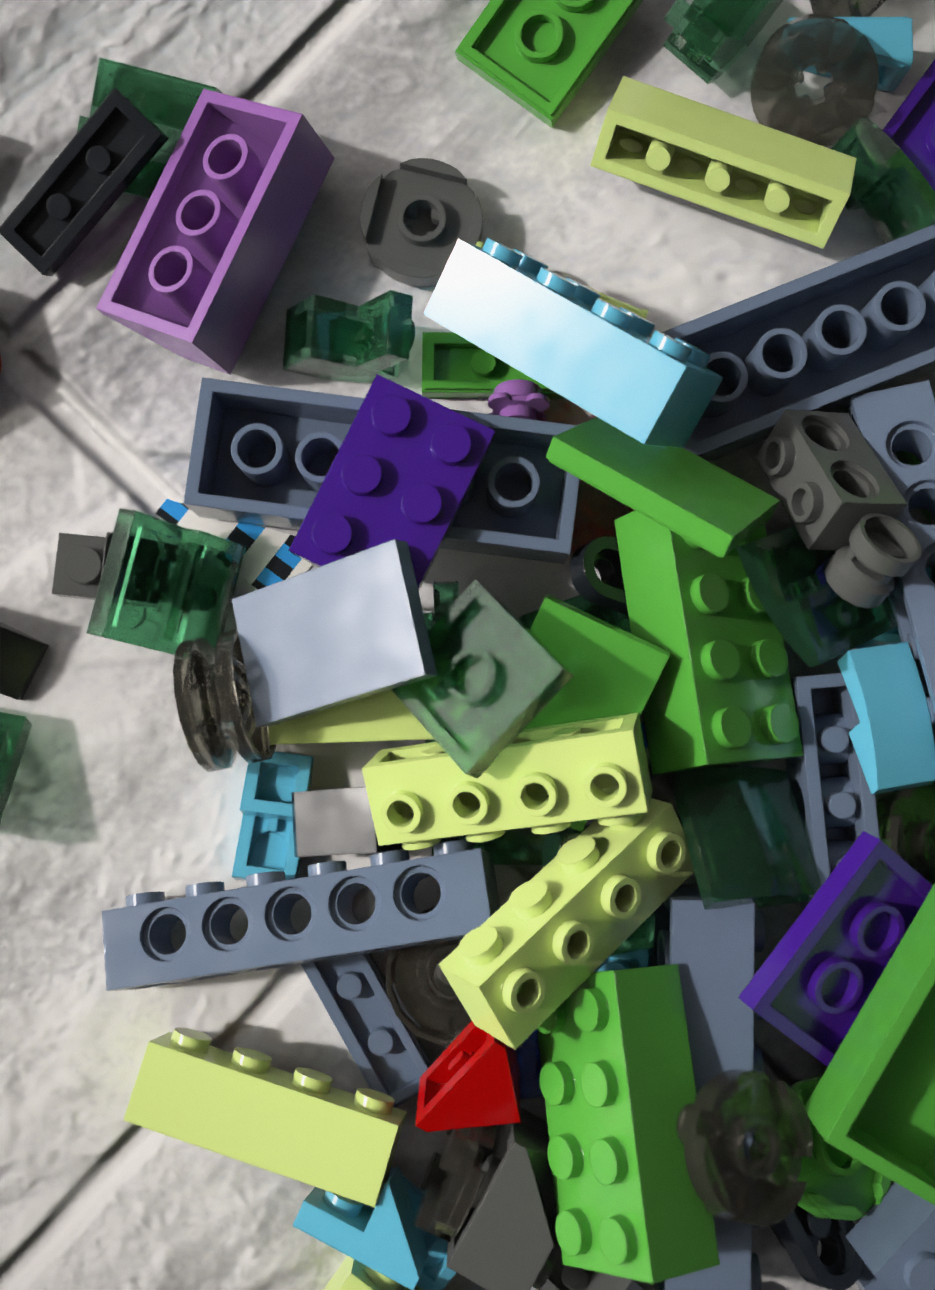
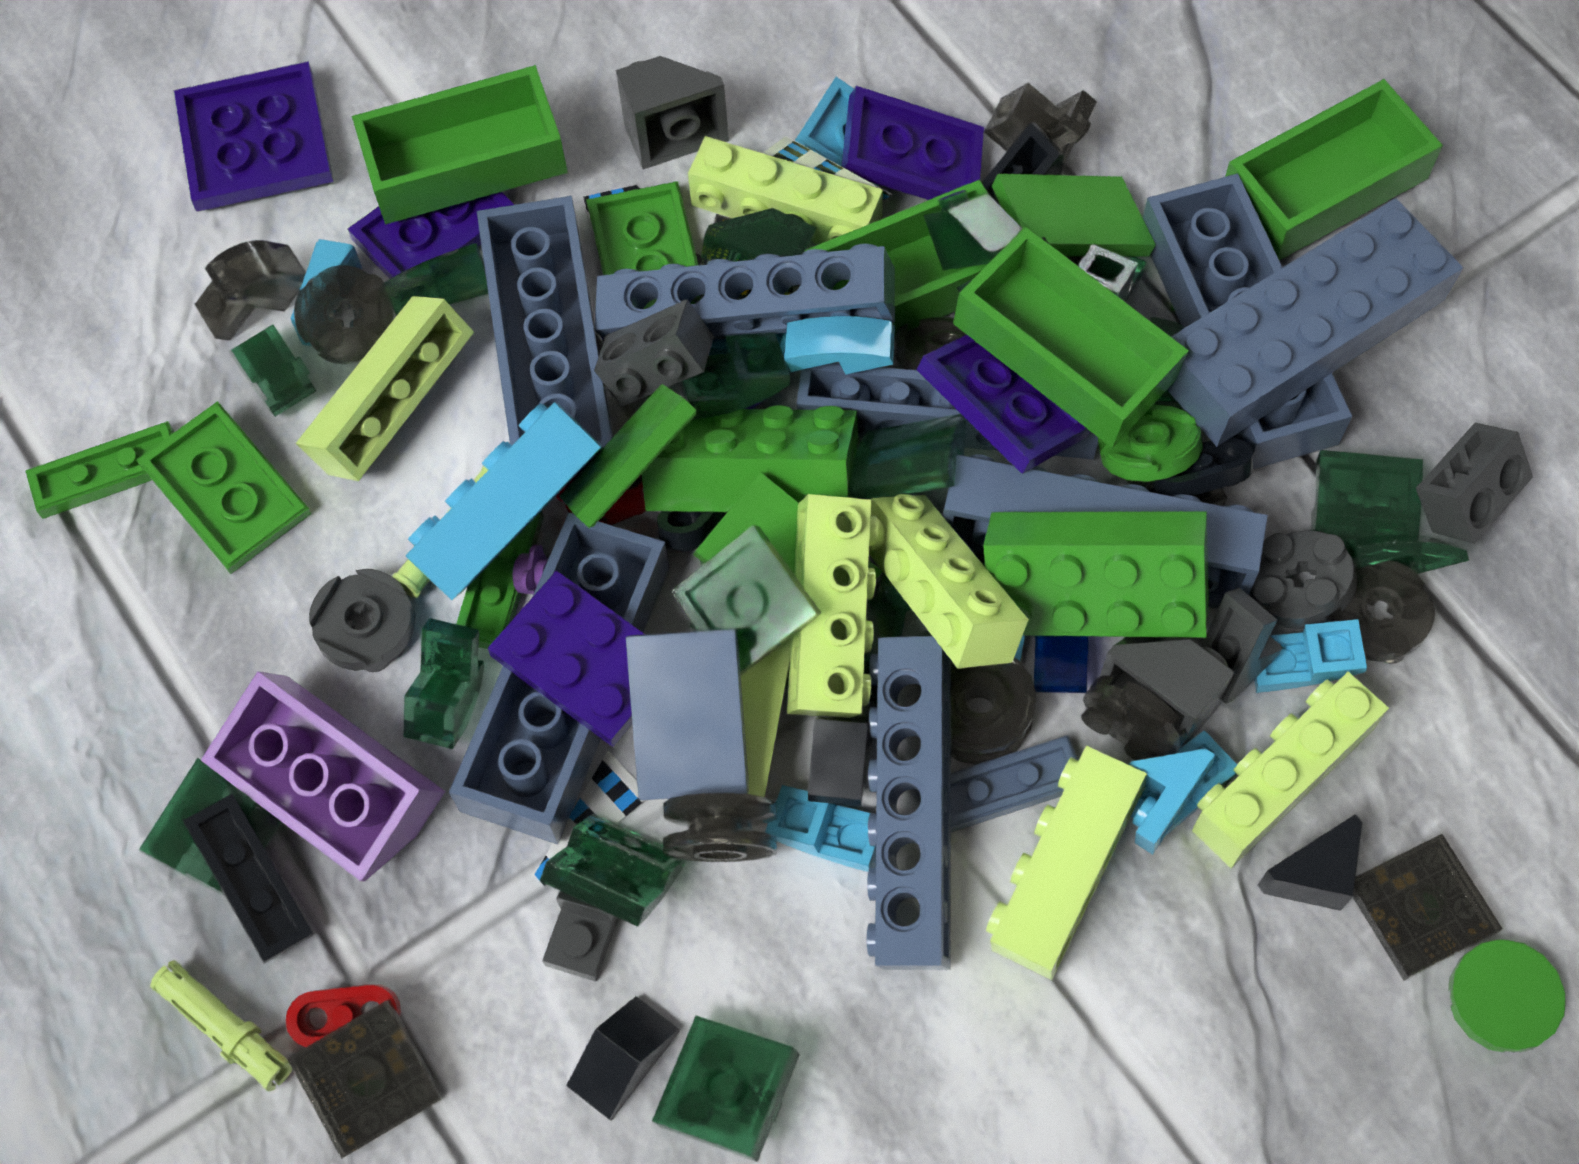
camera: 75 degrees left, 20 degrees down
(470, 1085) = (1058, 686): red slope -> none
(714, 1137) = (1126, 482): clear smoke plate -> none
(876, 555) = (722, 329): dark grey wheel -> none

